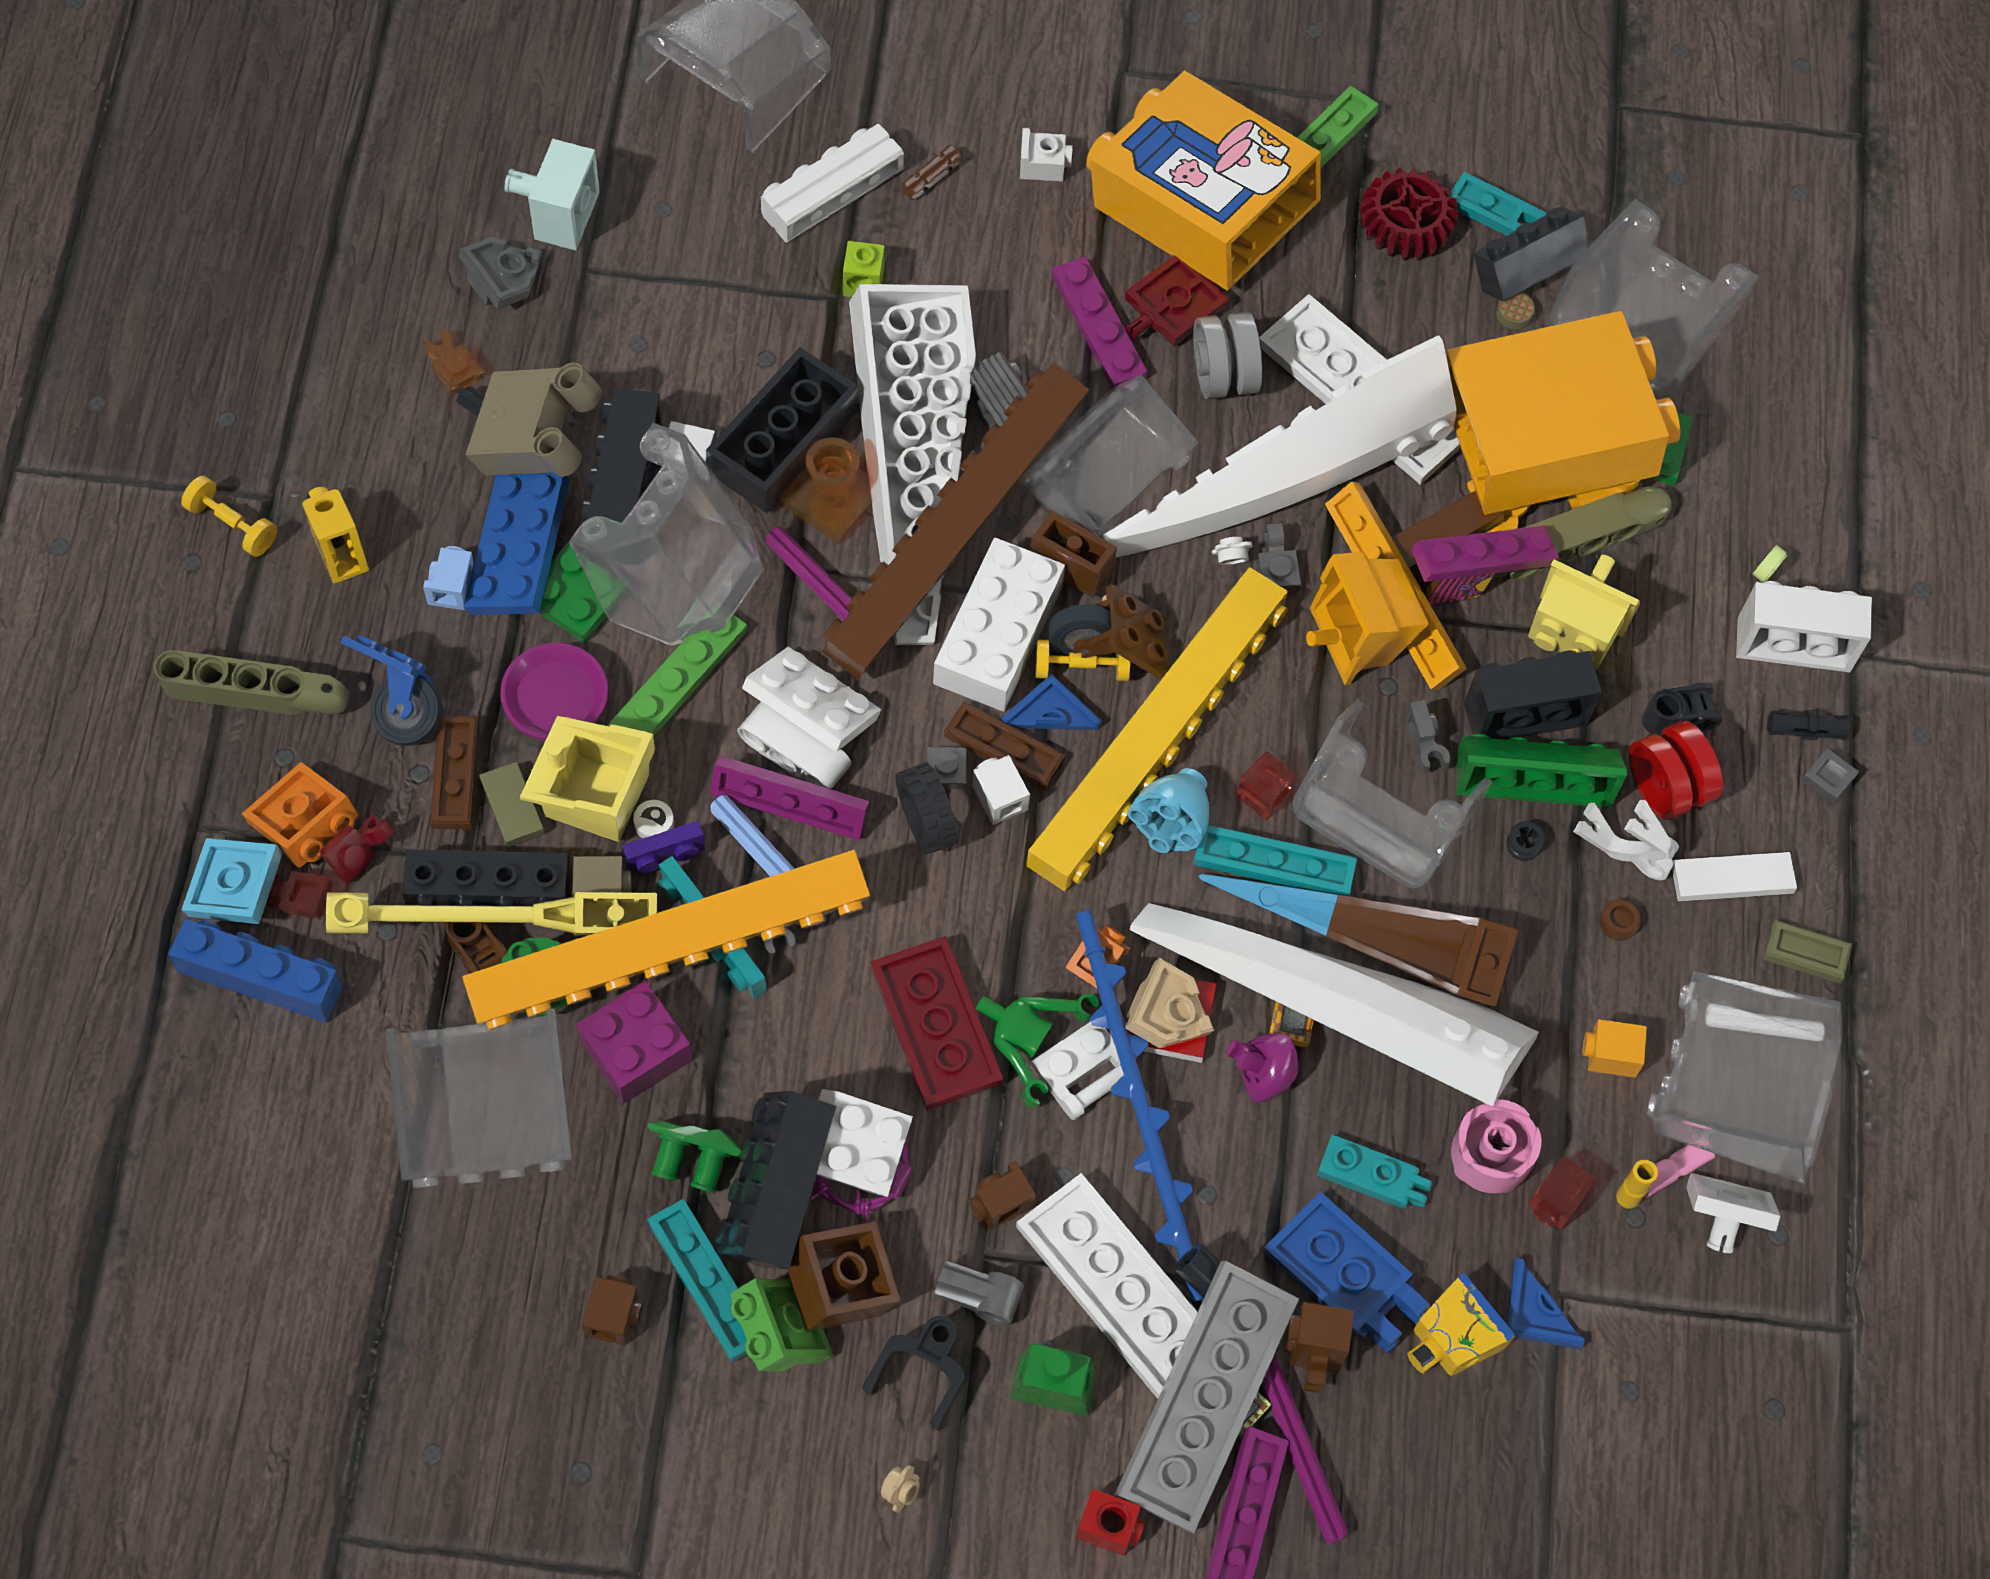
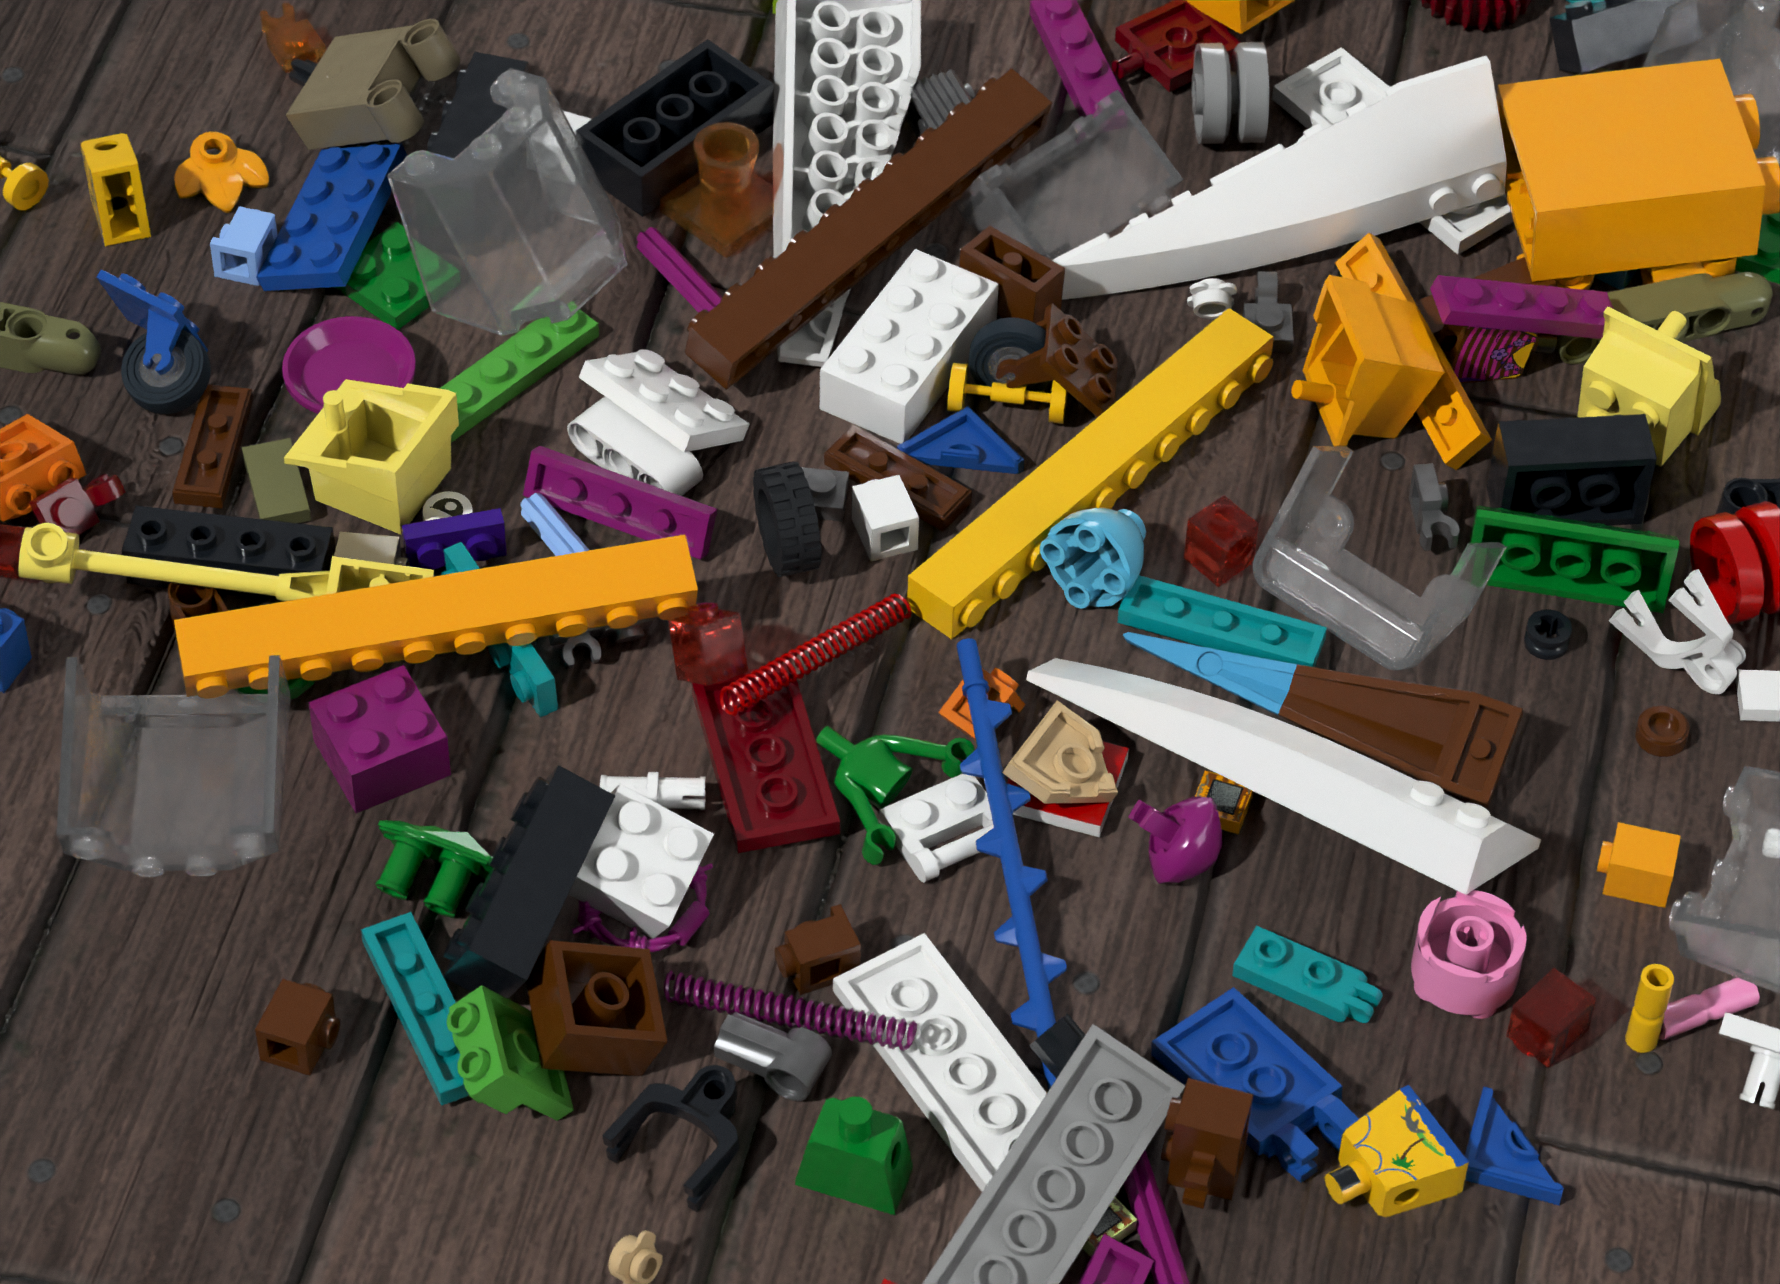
camera: 10 degrees right, 15 degrees down
(418, 508) = (219, 175): none -> light orange plate
(853, 1064) = (665, 791): none -> white pin
(881, 934) = (708, 644): none -> clear red brick
(960, 928) = (763, 670): none -> red piece
(977, 1259) = (789, 1007): none -> magenta piece

